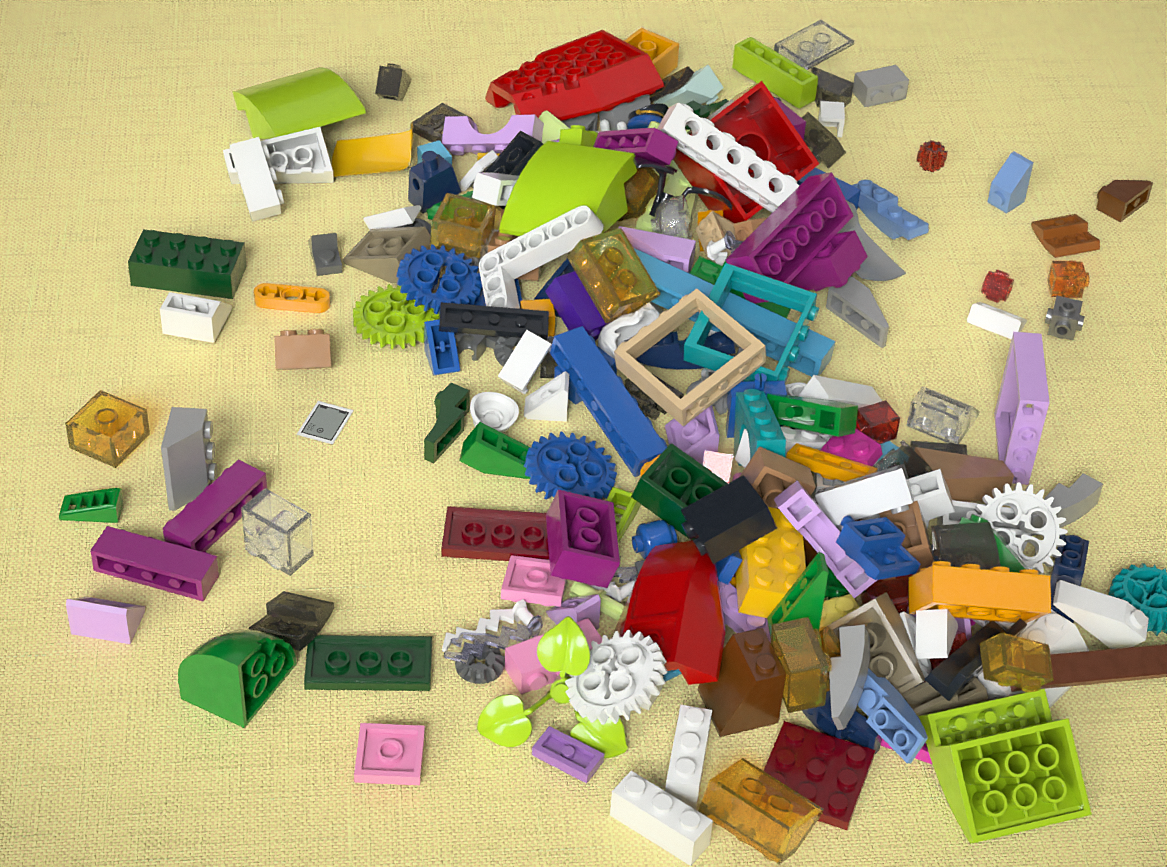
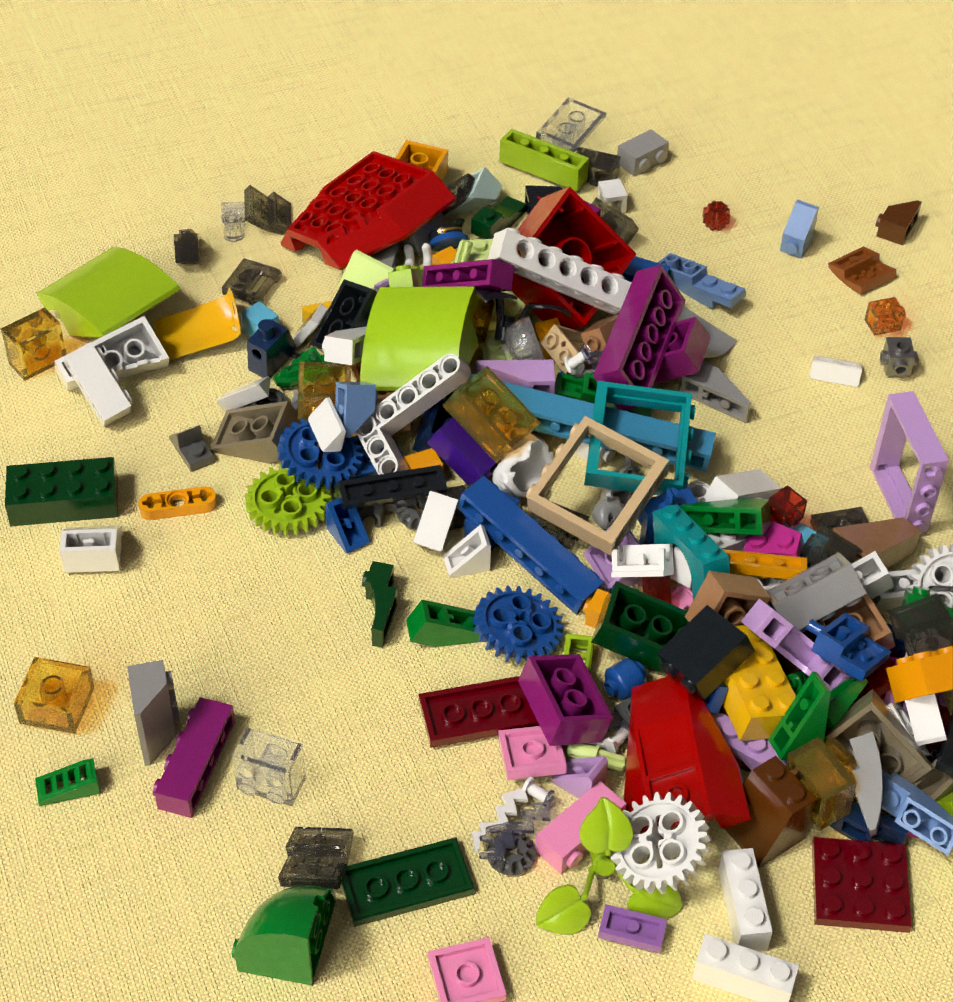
camera: 15 degrees left, 5 degrees up
(104, 618) = (130, 904): lavender slope -> none
(155, 563) = (157, 830): magenta brick -> none
(210, 132) = (33, 343): none -> clear yellow brick
(302, 351) = (213, 560): slope -> none
(325, 422) = (261, 630): sticker -> none
(448, 68) = (234, 220): none -> clear piece
(451, 255) = (327, 426): none -> white slope
(463, 136) = (278, 289): lavender arch -> none
(480, 66) = (265, 212): none -> clear smoke slope
(482, 239) = (355, 404): none -> medium blue slope
(494, 410) = (425, 582): white helmet -> none
(669, 351) = (573, 474): dark blue slope -> none
(710, 435) = (642, 560): none -> white hinge
(759, 810) = (832, 939): clear yellow slope -> none
(842, 602) = (842, 698): none -> green slope
(941, 416) = (830, 484): clear slope -> none
(997, 286) = (826, 337): clear red gear -> none

